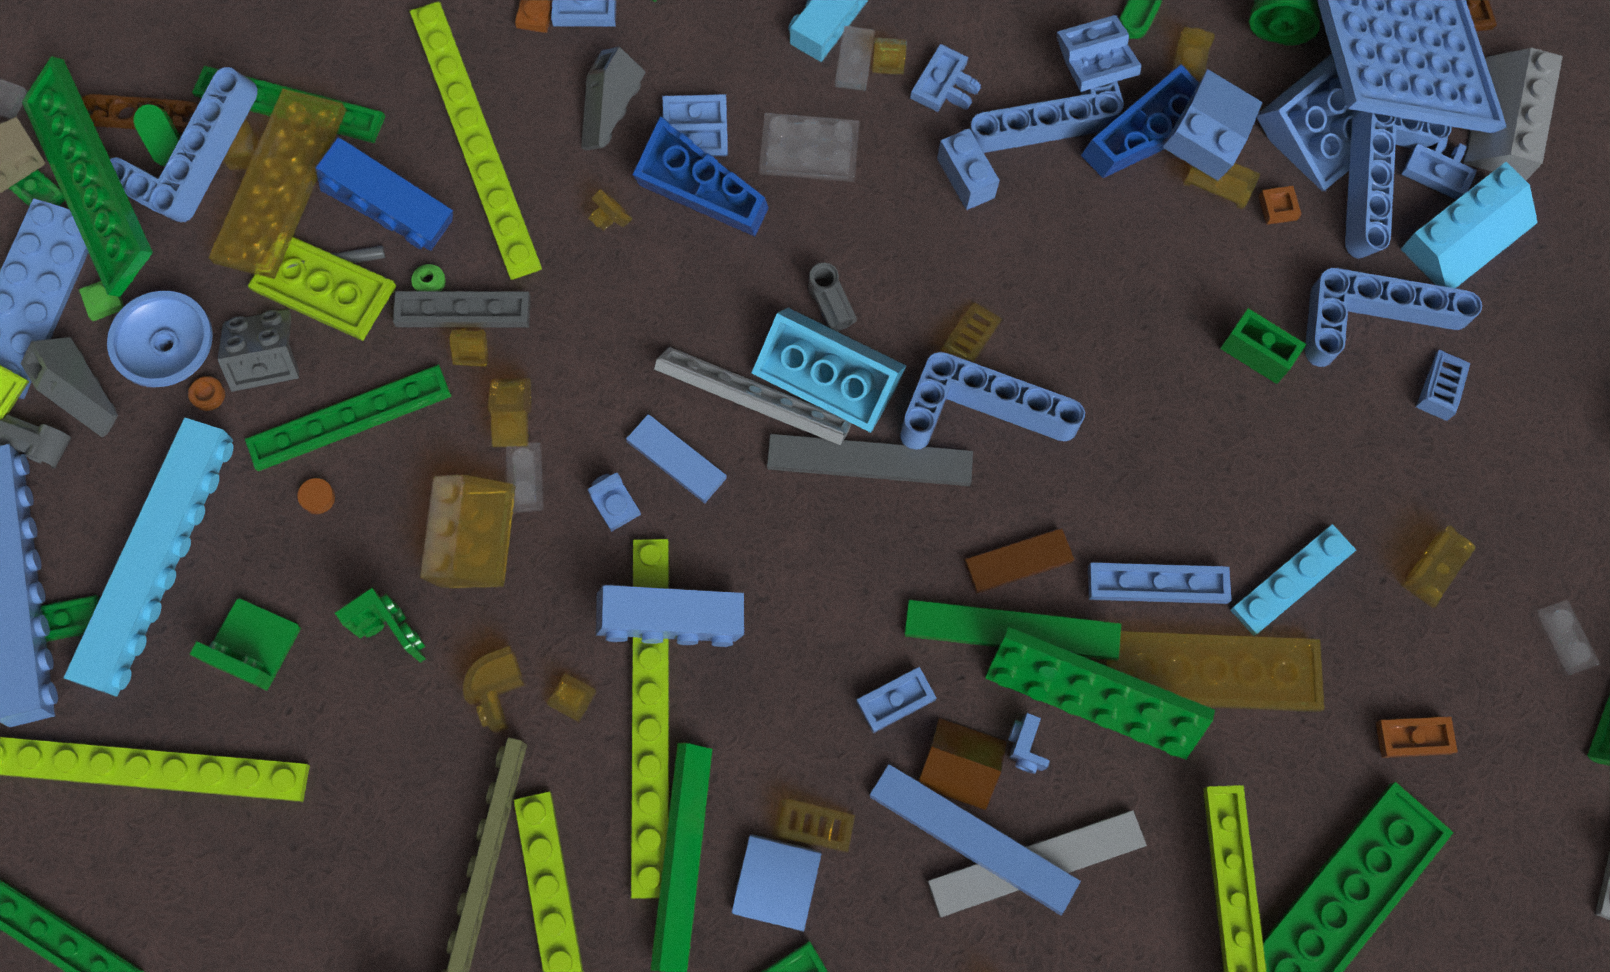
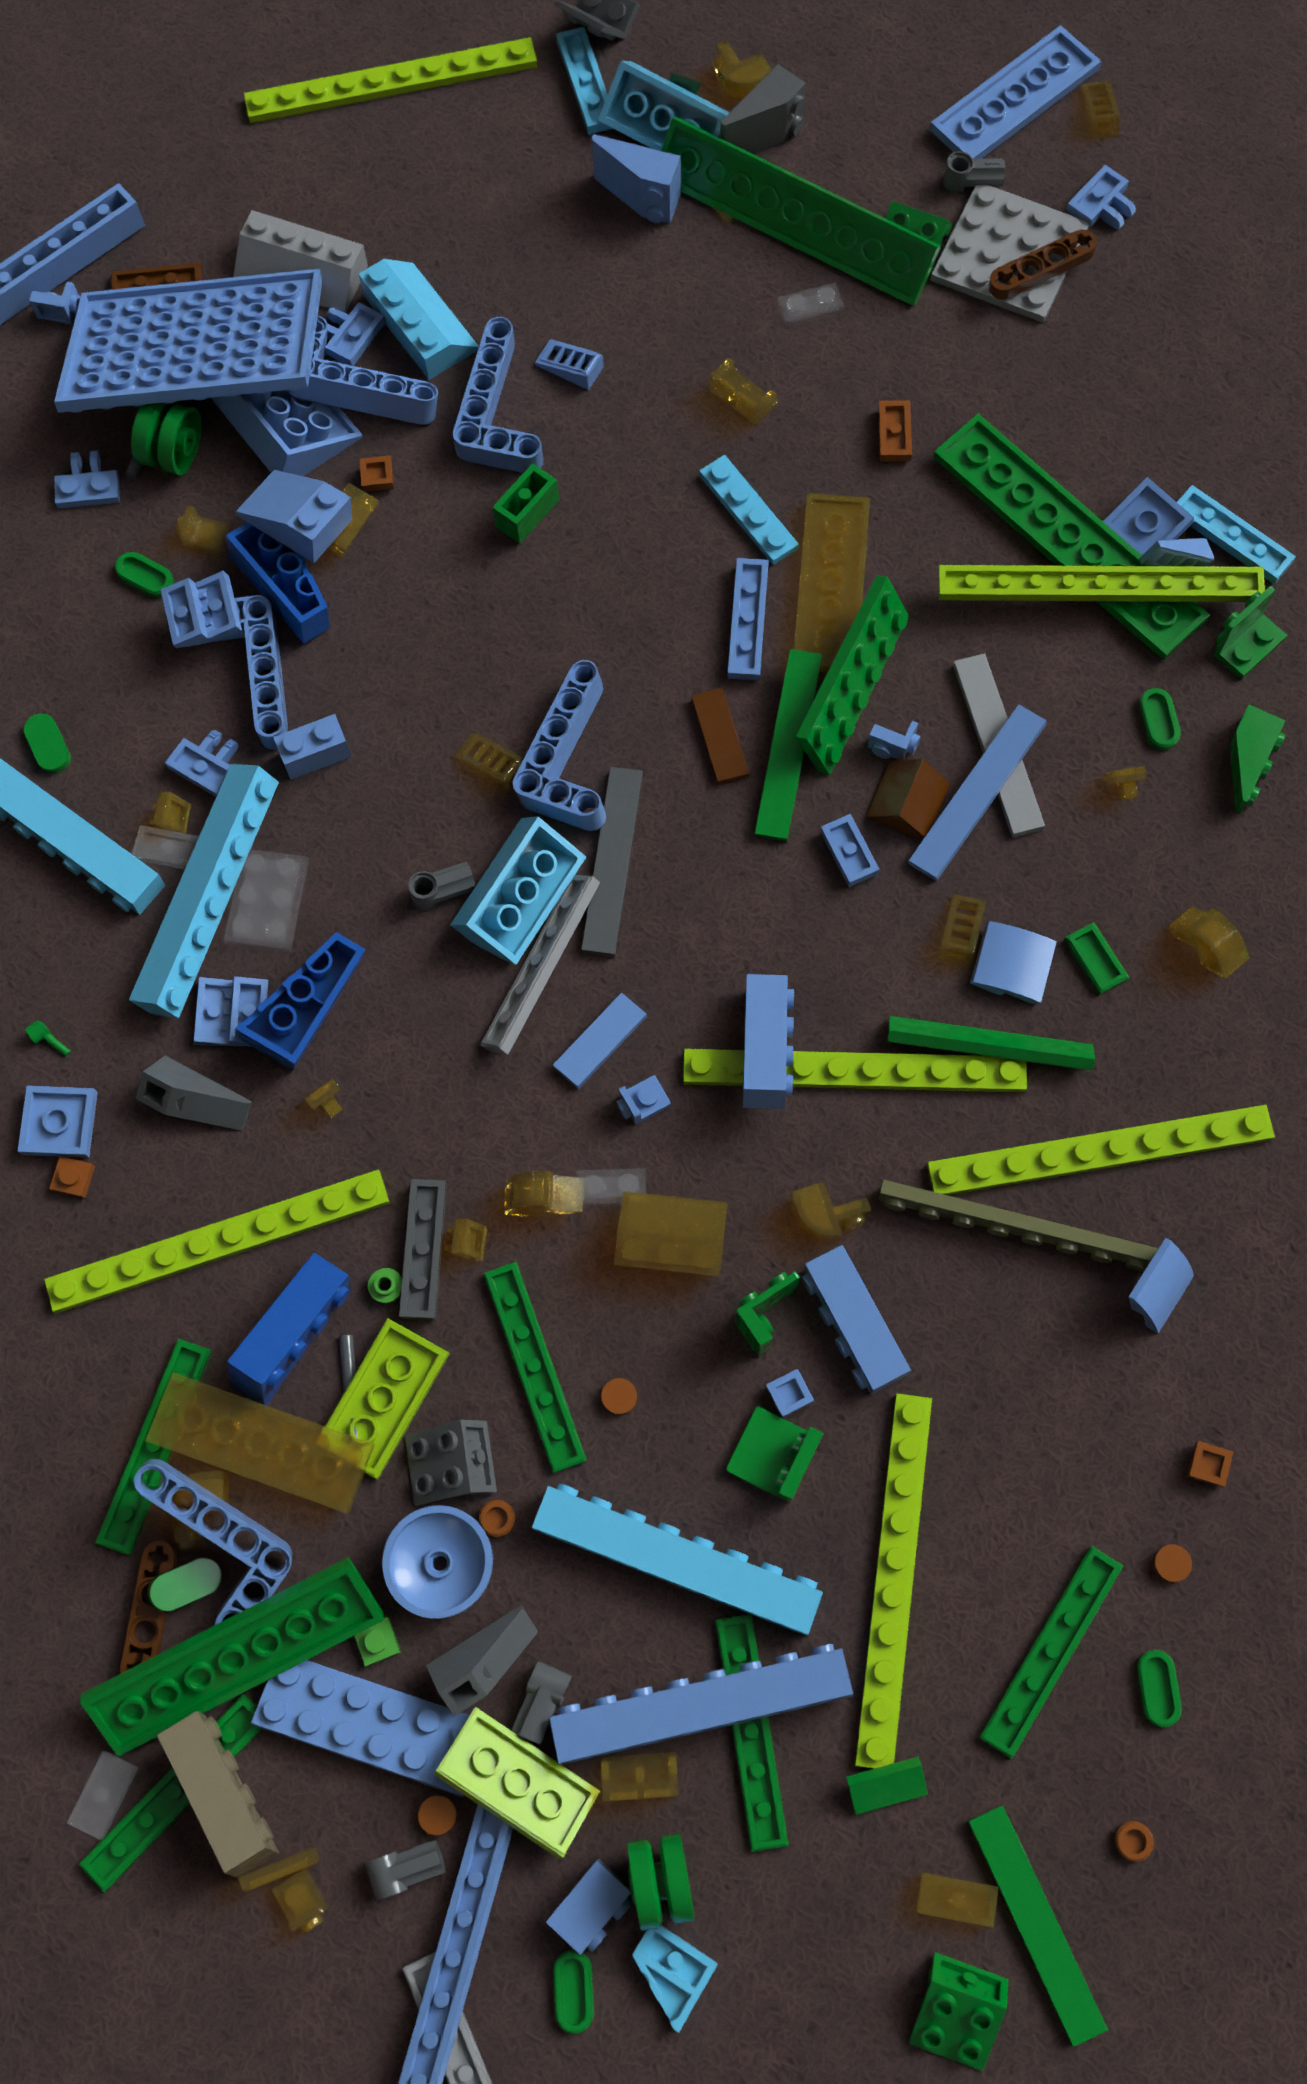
camera: 80 degrees left, 0 degrees up
(310, 657) = (789, 1393): none -> medium blue plate
(379, 720) = (856, 1320): none -> medium blue brick
(571, 697) = (837, 1143): clear yellow tile -> none
(811, 88) = (204, 891): none -> medium azure brick

